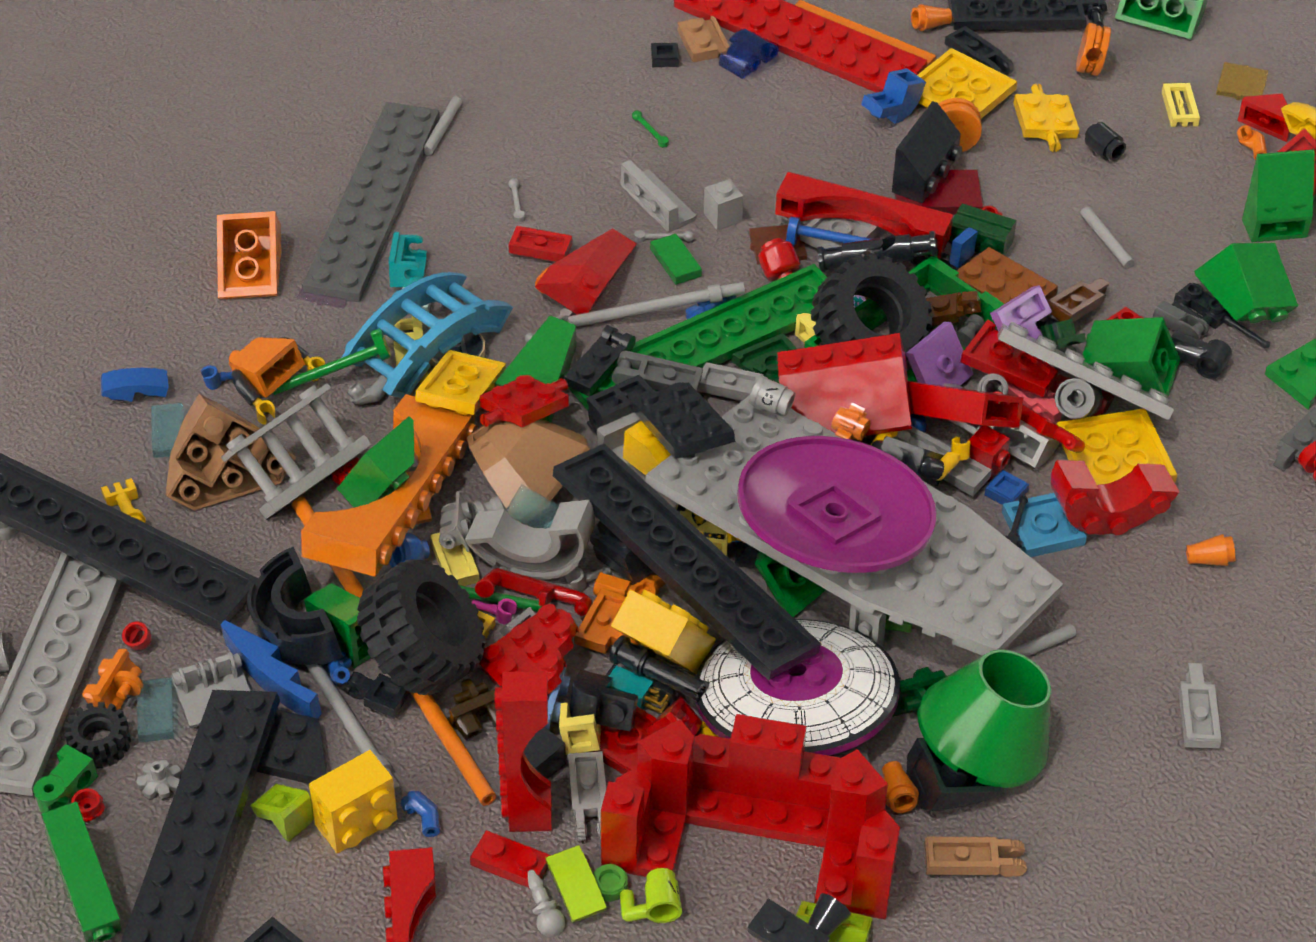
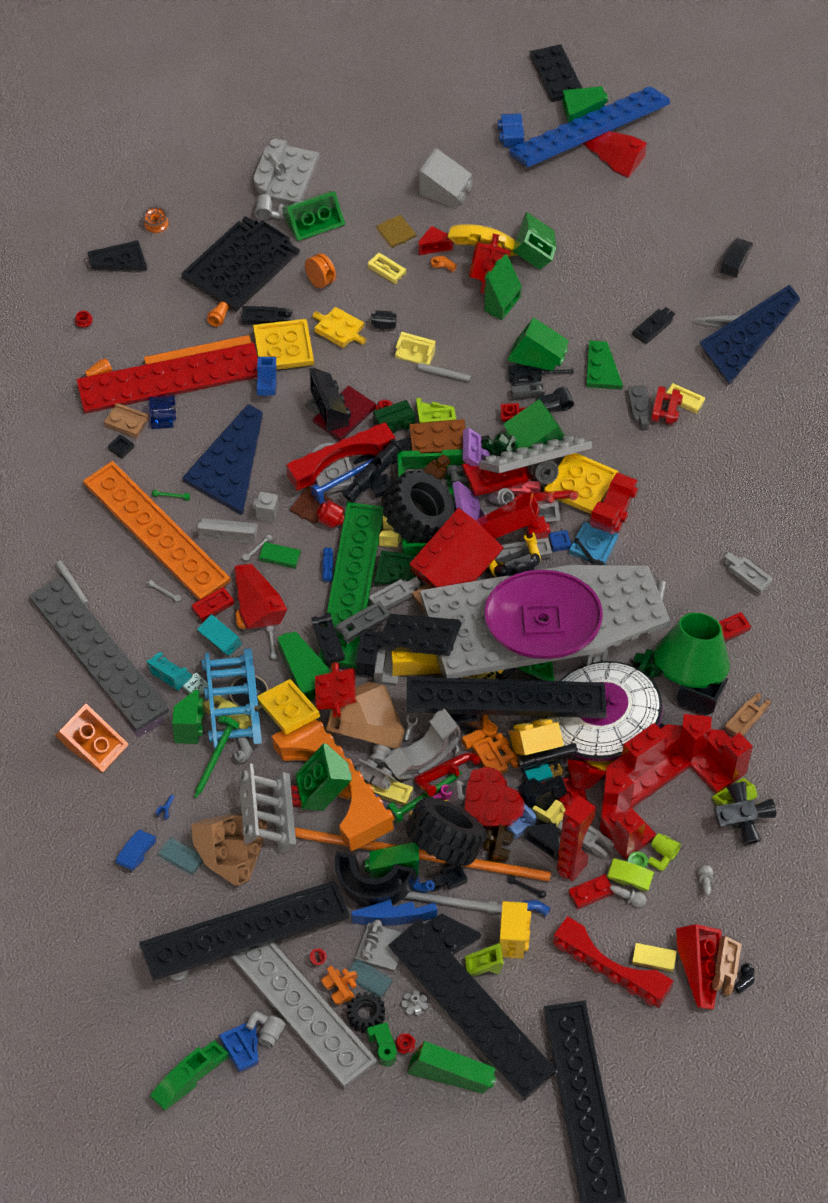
camera: 50 degrees left, 10 degrees up
(122, 498) = (210, 906): yellow hinge -> none
(265, 367) = (187, 784): orange torso -> none
(348, 305) = (188, 719): none -> green slope
(445, 764) = (511, 880): none -> black hinge
(503, 273) = (220, 635): none -> teal hinge
(532, 508) = (406, 734): clear light blue tile -> none
(585, 144) = (156, 531): none -> orange plate
(713, 293) = (329, 558): light grey bar -> none
(742, 144) = (228, 463): none -> dark blue wing
(771, 396) = (440, 587): light grey piece -> none
(851, 423) = (482, 570): orange gear -> none
(901, 791) = (678, 711): orange cone -> none
(963, 247) = (400, 434): blue tile -> none
(966, 119) = (316, 361): orange head -> none
(1035, 258) = (434, 412): none -> lime wing
(1078, 300) = (479, 418): reddish brown hinge -> none
(1087, 744) = (734, 626): none -> red plate
(1102, 191) = (415, 349): none -> light yellow hinge
(1212, 551) = (671, 495): orange cone -> none

